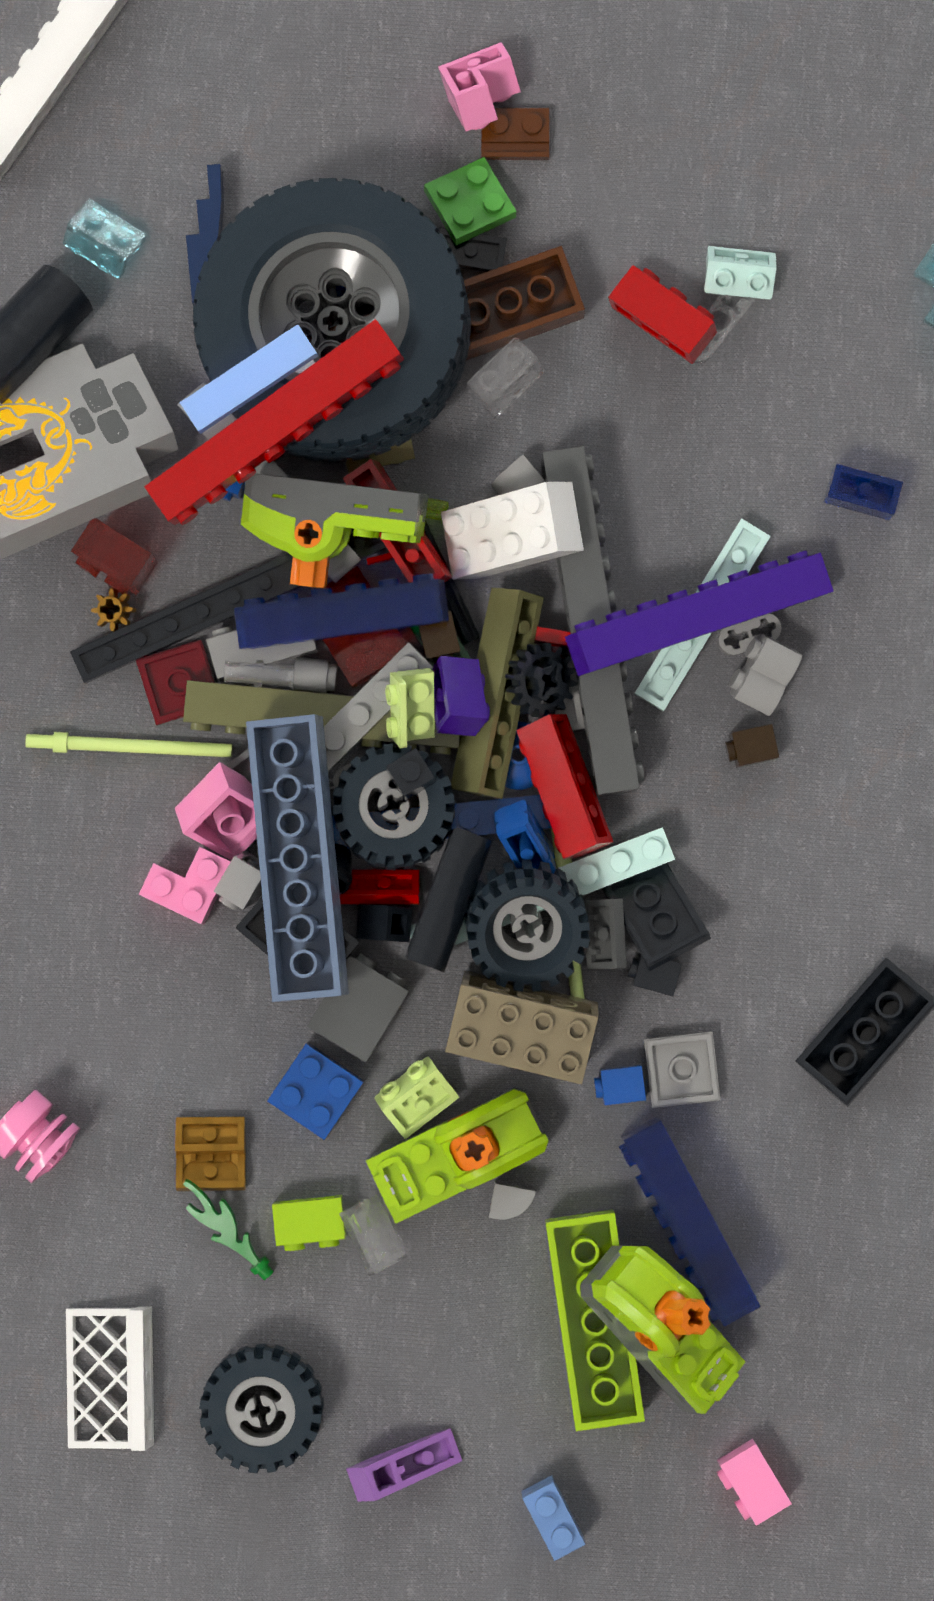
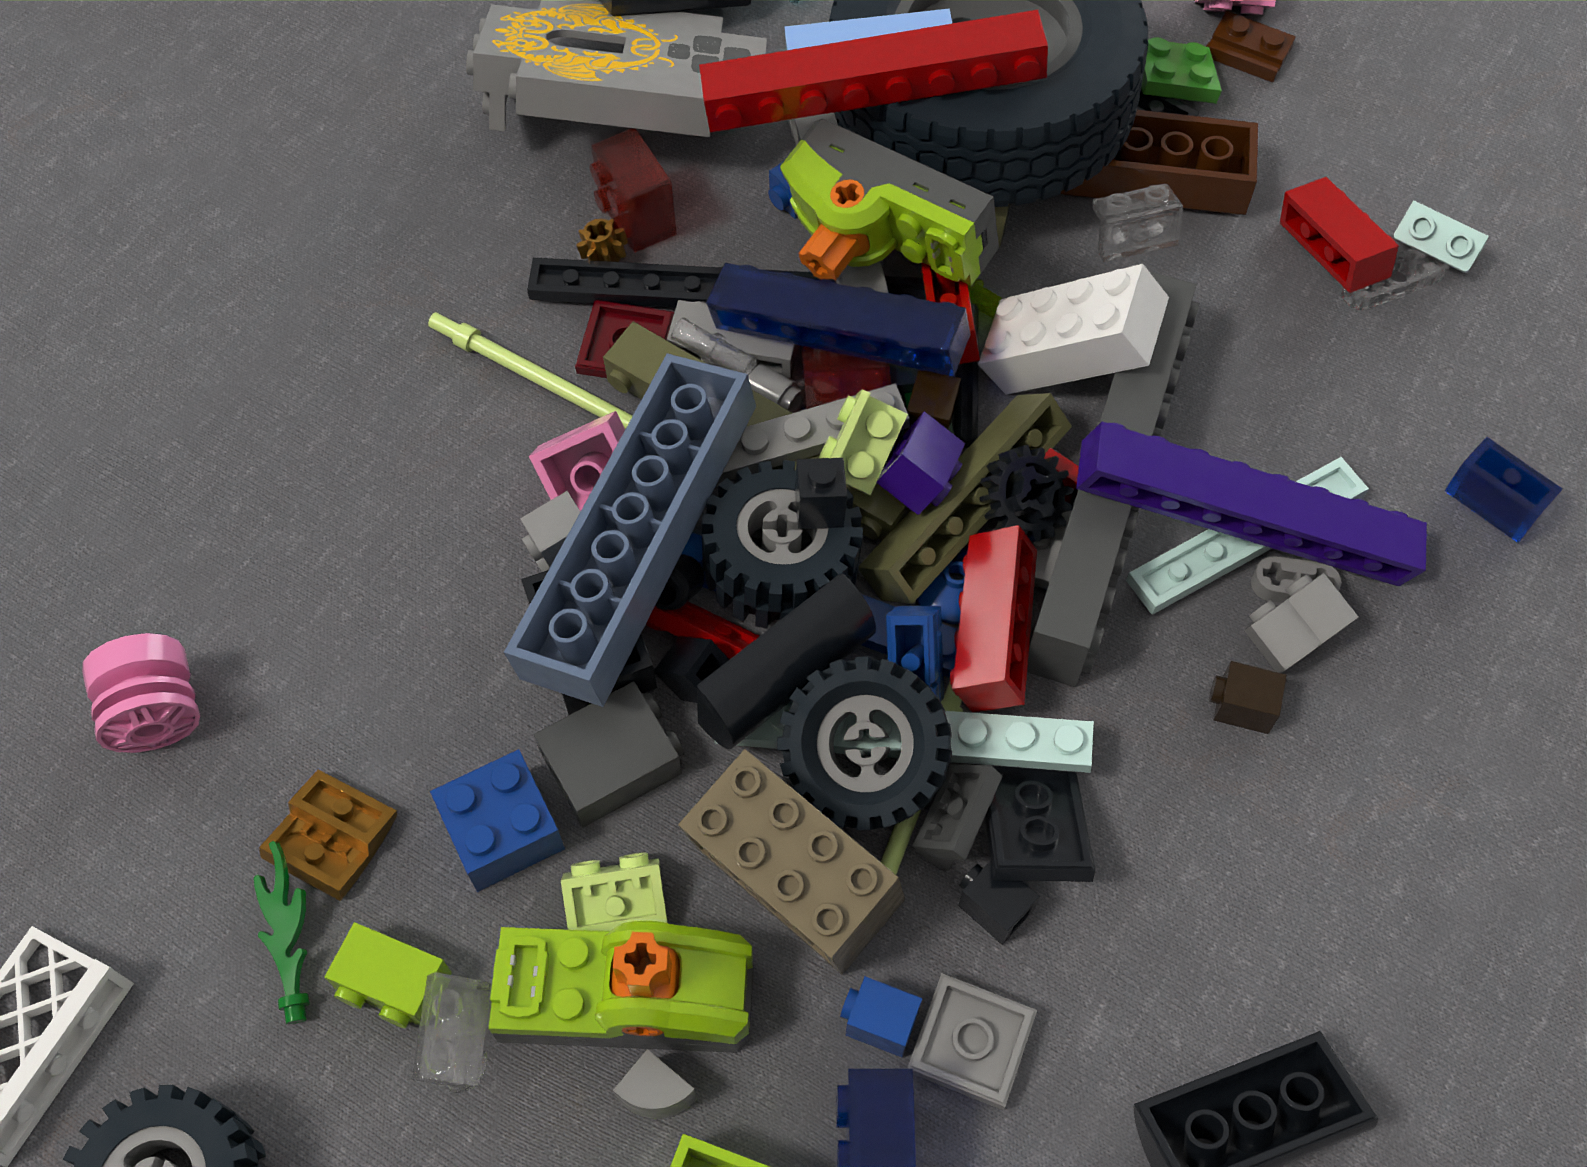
camera: 30 degrees right, 25 degrees down
(188, 895) = (492, 530): bright pink brick -> none

